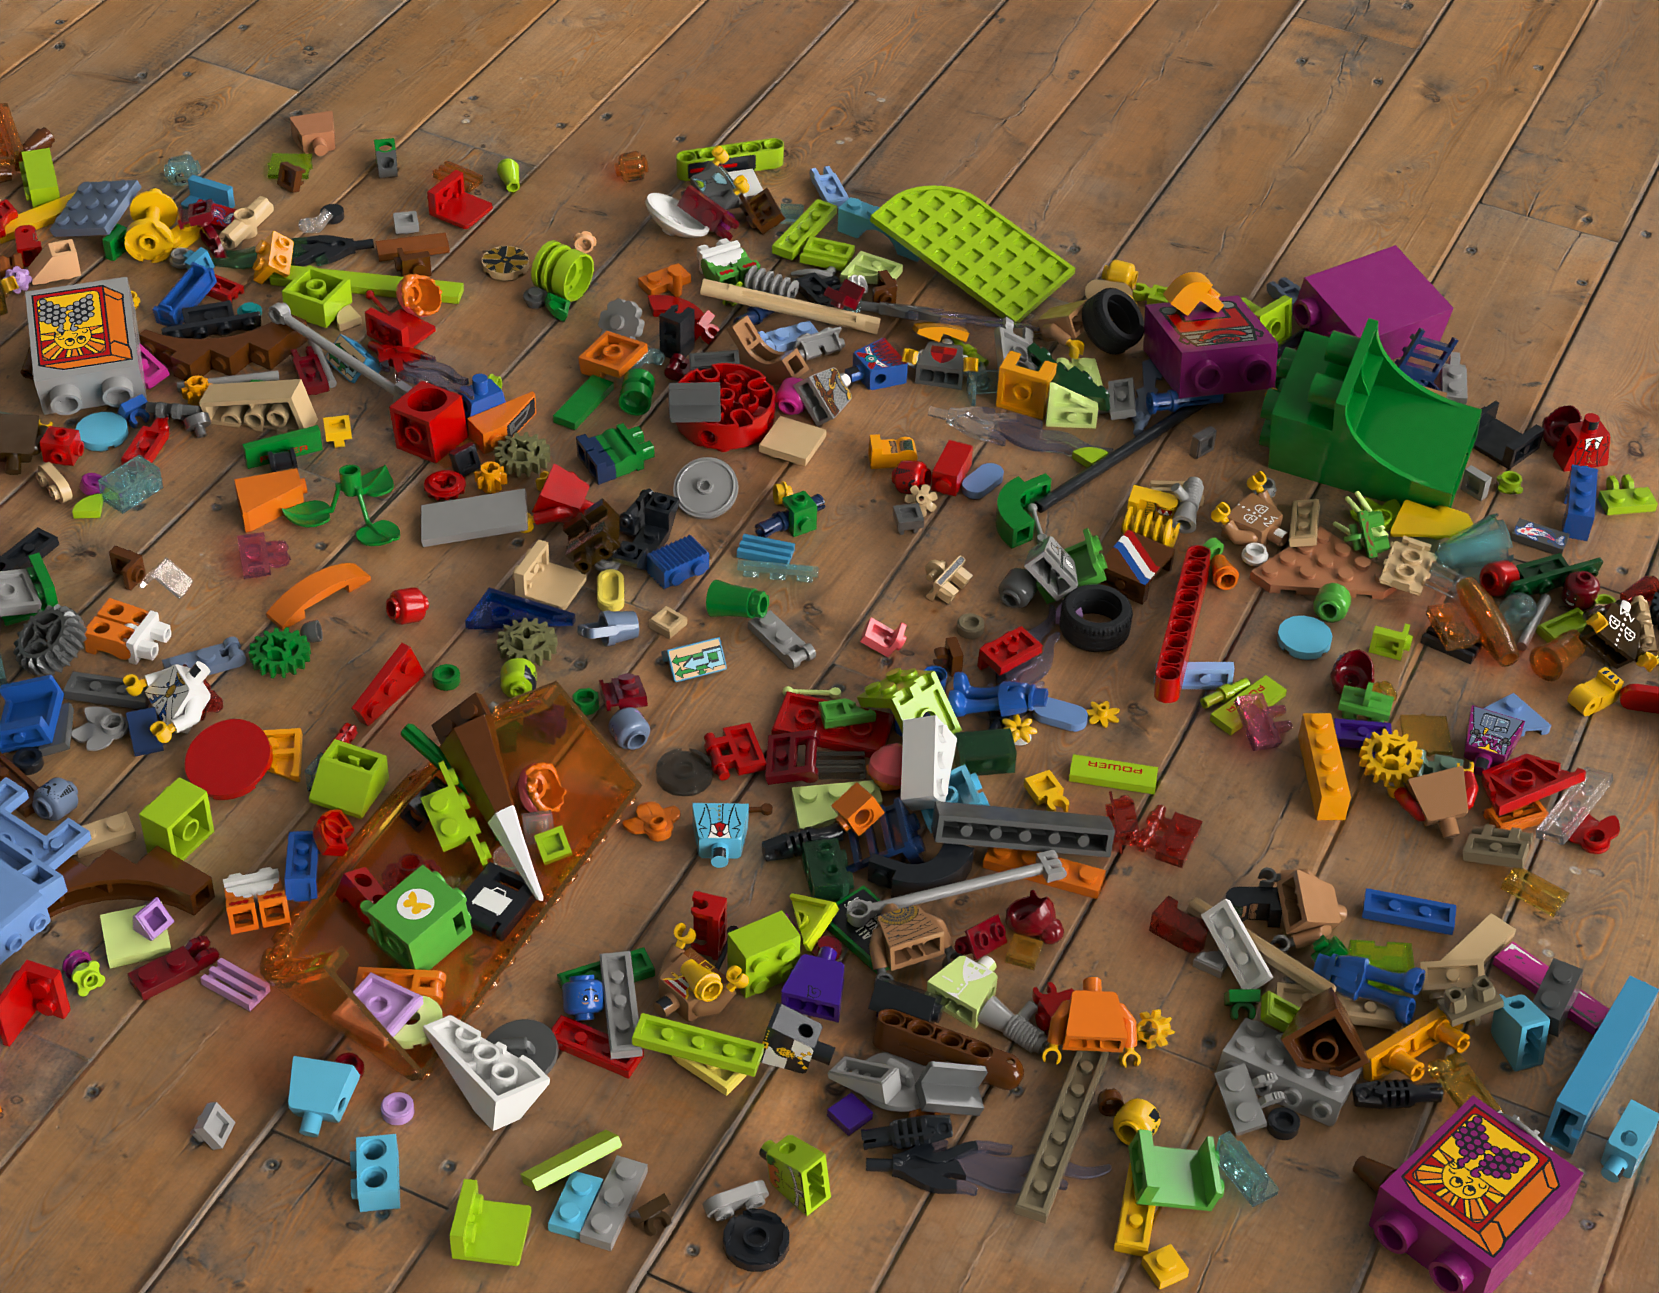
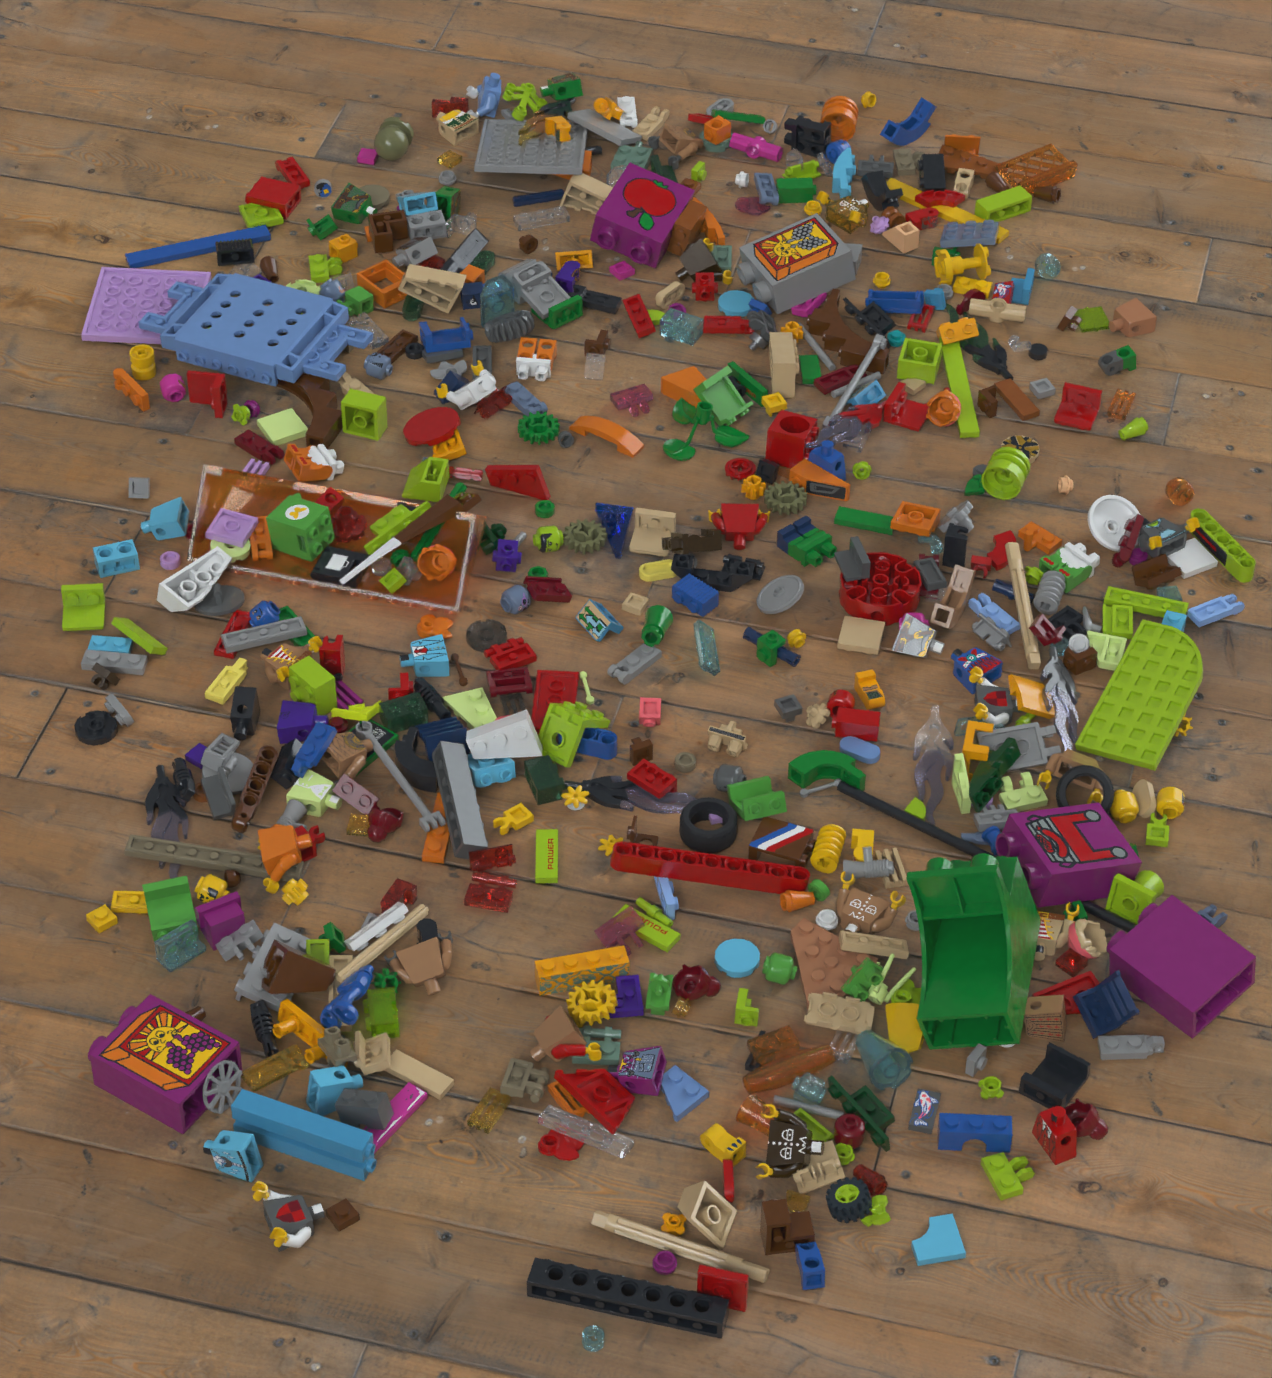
camera: 80 degrees right, 0 degrees up
(83, 519) = (639, 316): none -> red plate
(152, 920) = (287, 425): medium lavender slope -> none
(197, 214) = (985, 280): dark red plate -> none
(301, 866) = (343, 473): blue container -> none
(308, 467) = (723, 397): none -> bright green panel
(331, 832) = (377, 480): red tile -> none
(407, 605) = (602, 474): red head -> none
(474, 517) = (705, 486): light grey tile -> none
(611, 627) = (610, 572): sand blue piece -> none
(636, 392) = (873, 540): green wheel -> none
(698, 1044) = (229, 668): lime plate -> none
(703, 982) = (275, 657): yellow cone -> none
(765, 549) = (731, 630): dark azure tile -> none
(779, 865) = (405, 689): none -> red bracket
(798, 1172) = (139, 731): lime torso -> none
(843, 713) = (558, 694): bright green tile -> none
(857, 809) = (452, 711): orange brick -> none
(911, 956) = (313, 748): none -> blue hinge
(1008, 697) = (596, 781): blue piece -> none
(1048, 564) = (739, 780): light grey torso -> none
(1061, 715) = (602, 820): medium blue tile -> none
(1100, 683) = (636, 837): none -> reddish brown bracket
(1189, 290) = (1106, 817): light orange brick -> none
(1204, 1109) = (220, 918): none -> magenta plate
(1283, 1123) = (231, 971): black tile -> none
(1409, 911) = (443, 1030): blue plate -> none
(1430, 733) = (648, 1036): clear yellow piece -> none
(1498, 576) = (850, 1076): red head -> none

